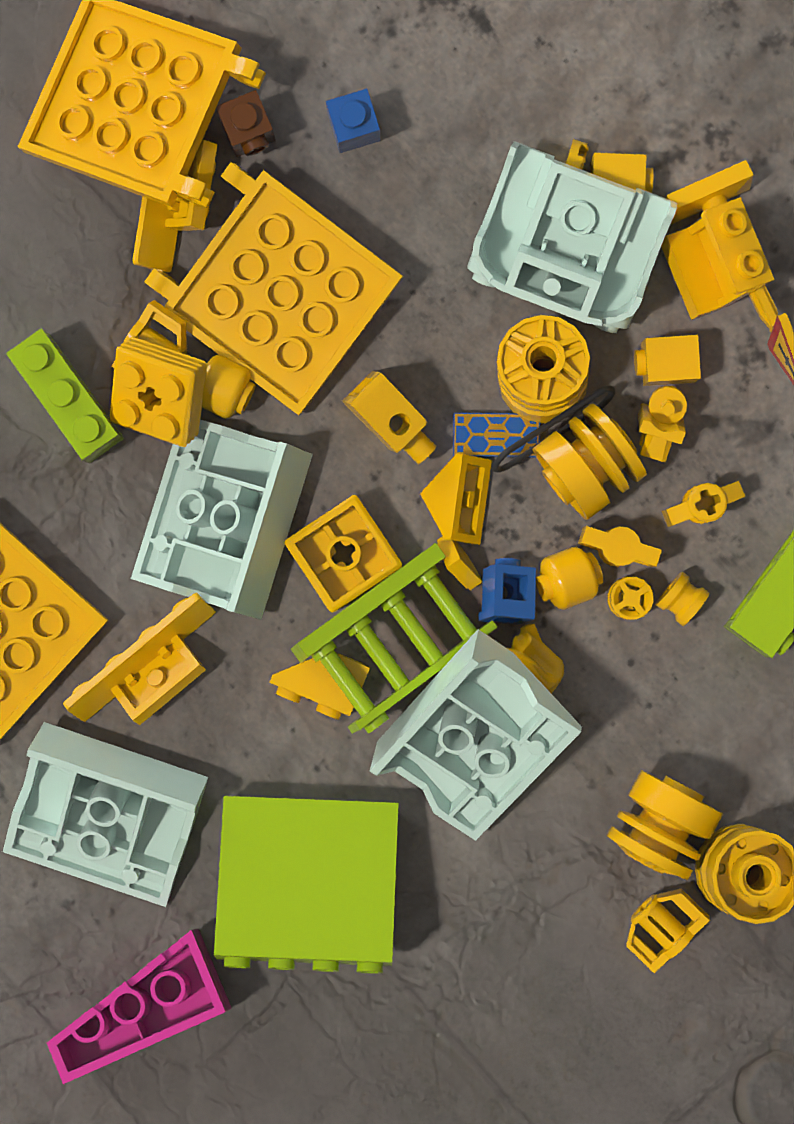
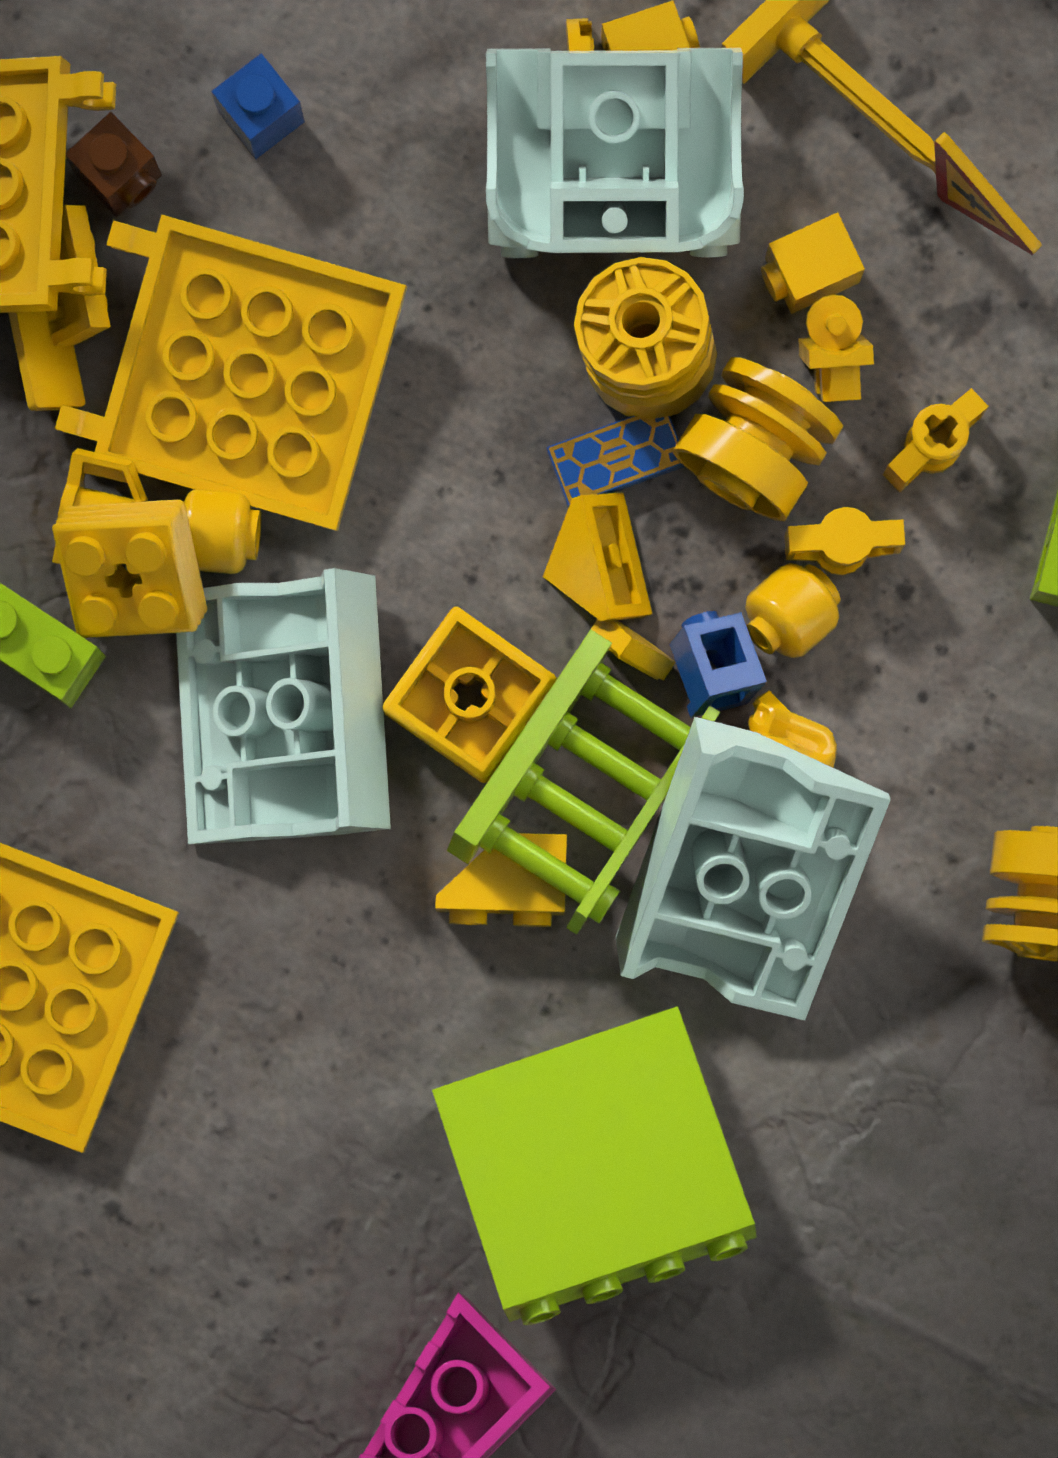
camera: 20 degrees left, 5 degrees down
(104, 814) = (275, 1184): light aqua piece -> none
(149, 670) = (260, 958): yellow bracket -> none
(376, 402) = (434, 479): yellow torso -> none
(496, 468) = (680, 413): black piece -> none
(640, 599) = (892, 596): yellow wheel -> none
(682, 598) = (958, 579): yellow wheel -> none
(717, 259) = (824, 102): yellow panel -> none

